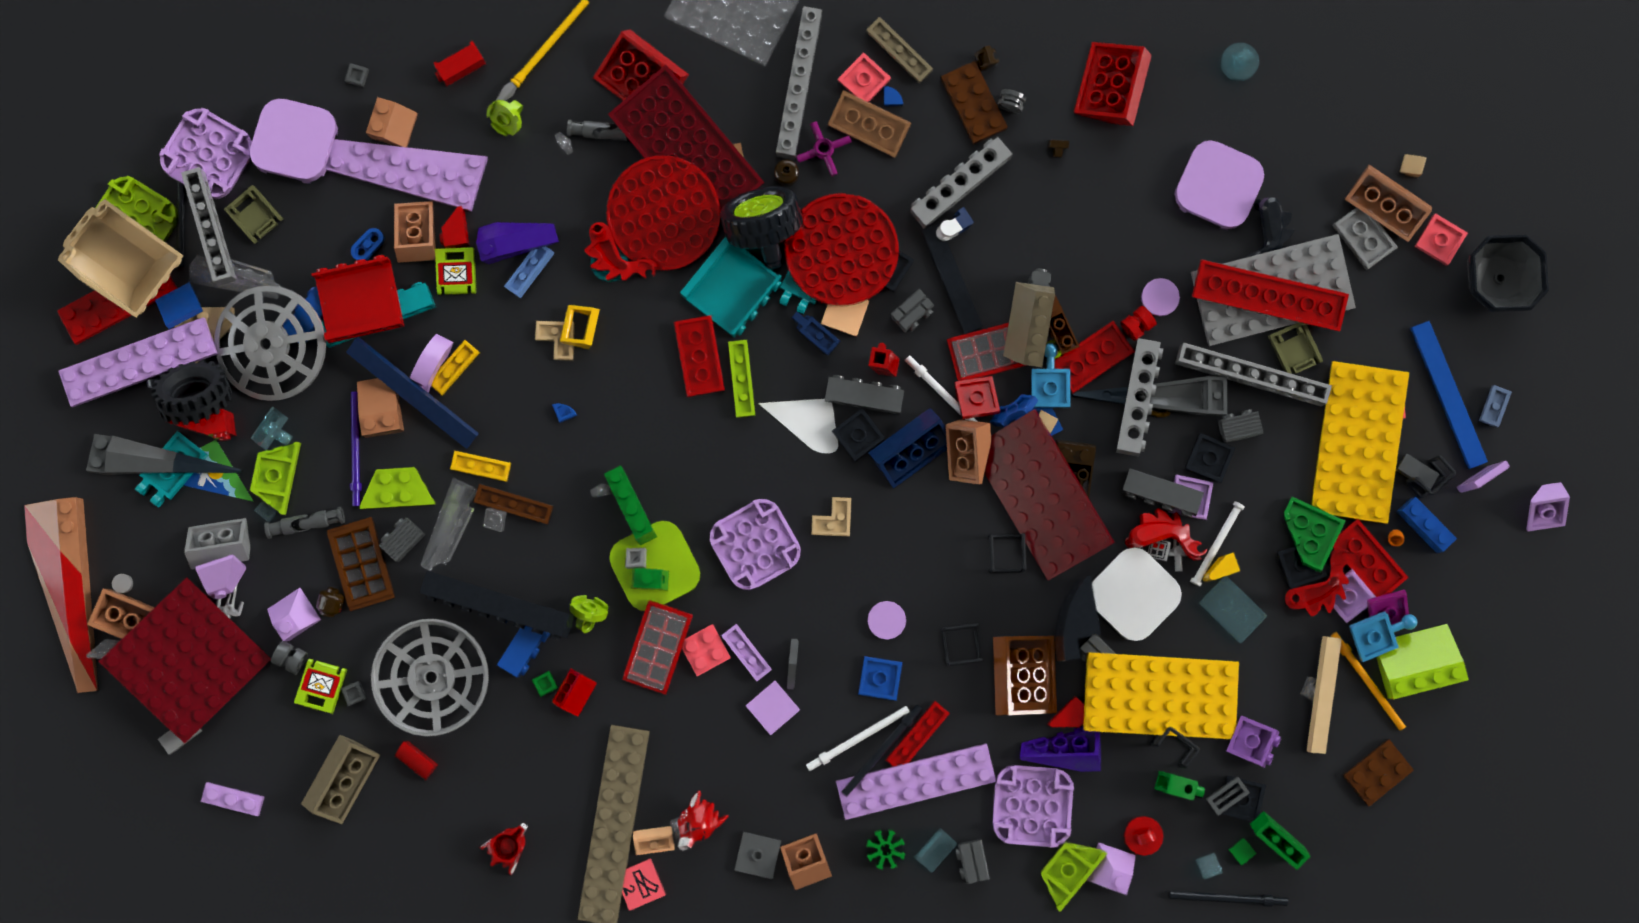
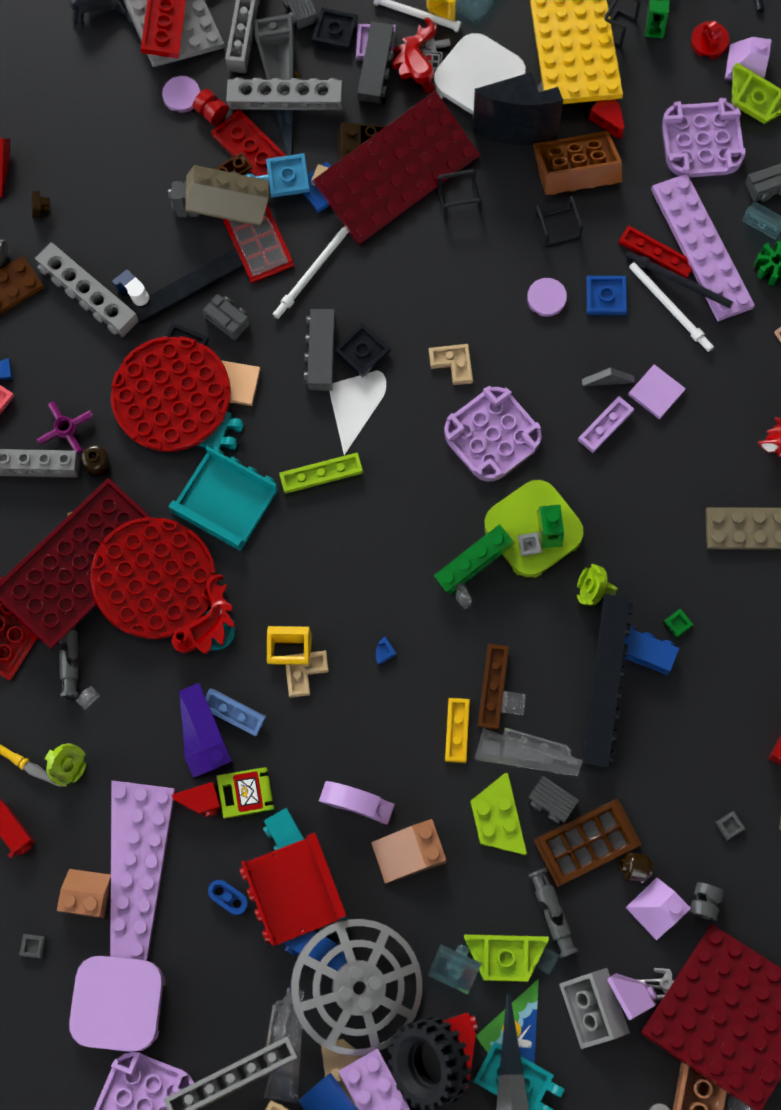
camera: 90 degrees left, 10 degrees down
(256, 217) = (211, 1034): olive container -> none
(320, 682) = (726, 862): container -> none
(355, 486) = (502, 863): dark purple bar -> none
(412, 392) = (388, 815): dark blue tile -> none
(414, 231) = (206, 845): nougat slope -> none
(417, 677) = (709, 735): light grey dish -> none
(454, 367) = (351, 776): yellow tile -> none
(574, 692) = (681, 590): red brick -> none
(657, 647) = (618, 511): clear piece -> none
(699, 356) = (303, 519): red tile -> none
(705, 650) = (611, 467): coral plate -> none
(762, 221) = (150, 467): black wheel -> none
(816, 333) = (262, 407): dark blue hinge -> none
(869, 123) = (33, 387): medium nougat tile -> none
(883, 361) = (283, 329): red brick -> none
(910, 448) = (367, 297): dark blue slope -> none
(967, 450) = (363, 240): nougat slope -> none
(977, 397) = (307, 242): red plate -> none
(1018, 408) = (310, 196): blue tile -> none
(1071, 751) = (643, 113): dark purple wedge -> none
(1219, 184) = (61, 54): lavender tile -> none

